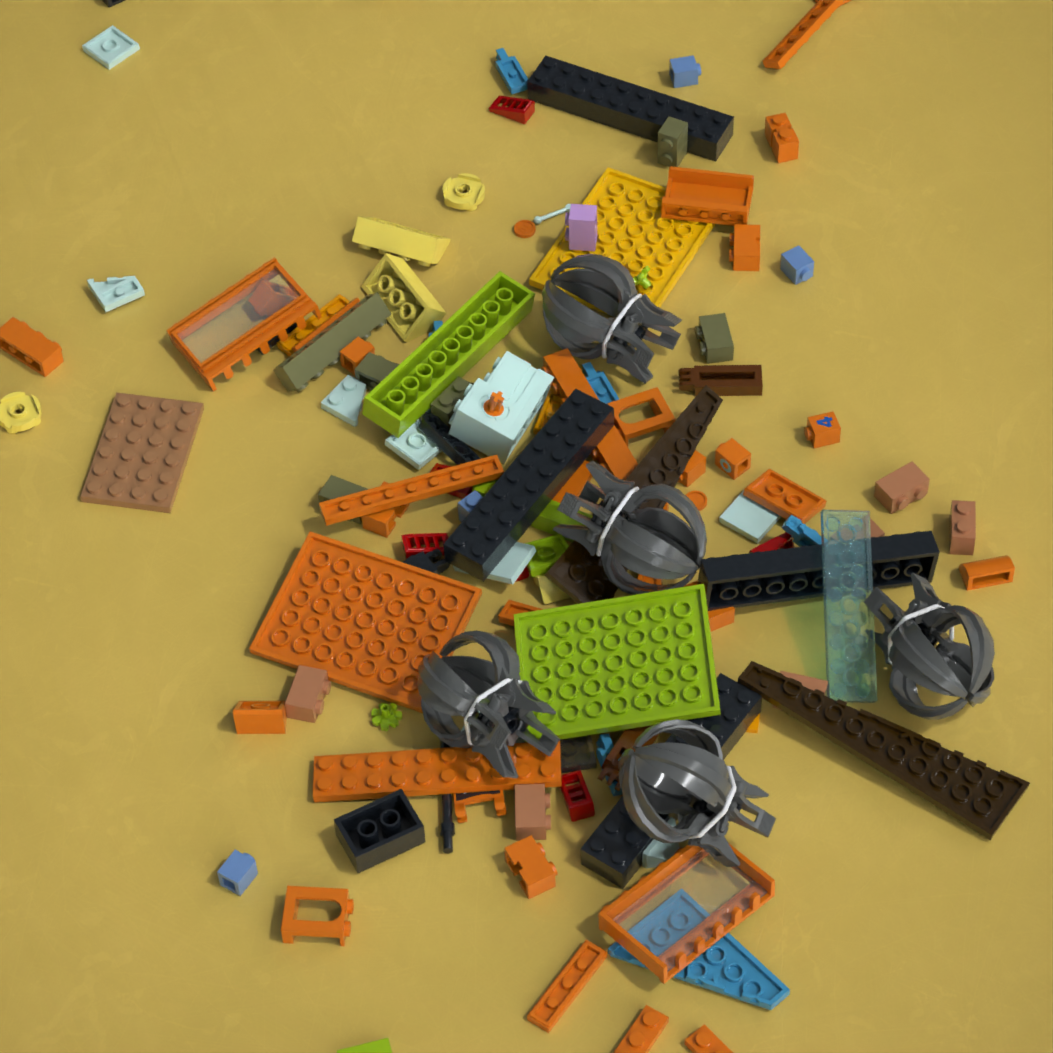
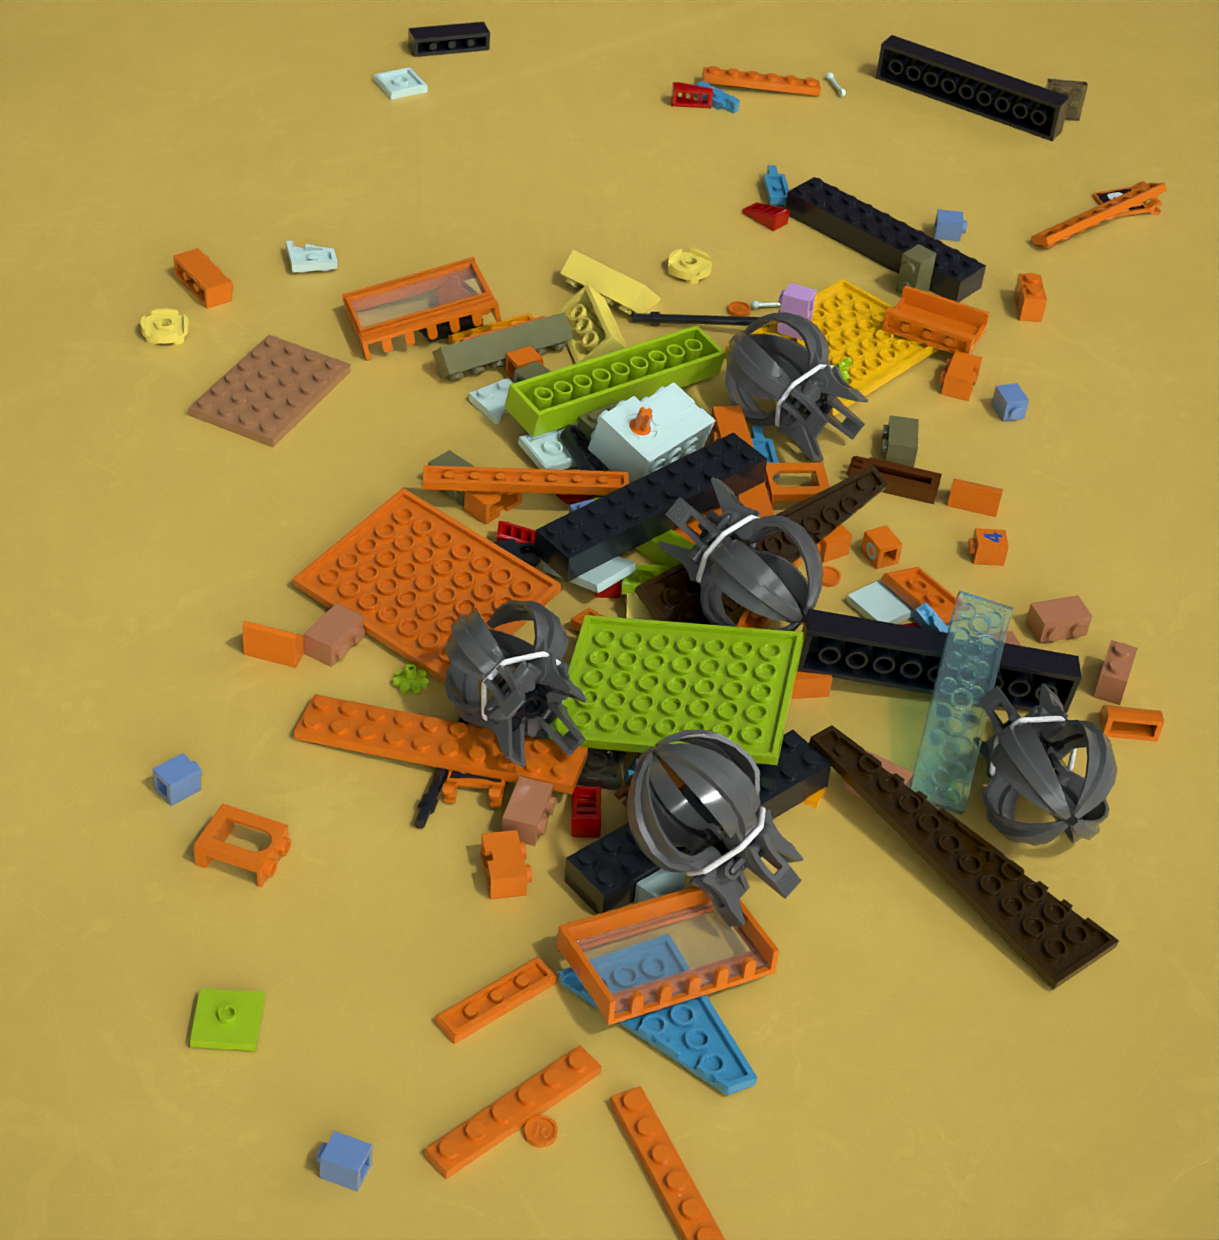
camera: 10 degrees right, 10 degrees down
(379, 830) = (350, 780): black brick -> none
(455, 264) = (656, 318): none -> black bar
(796, 380) = (975, 497): none -> orange brick

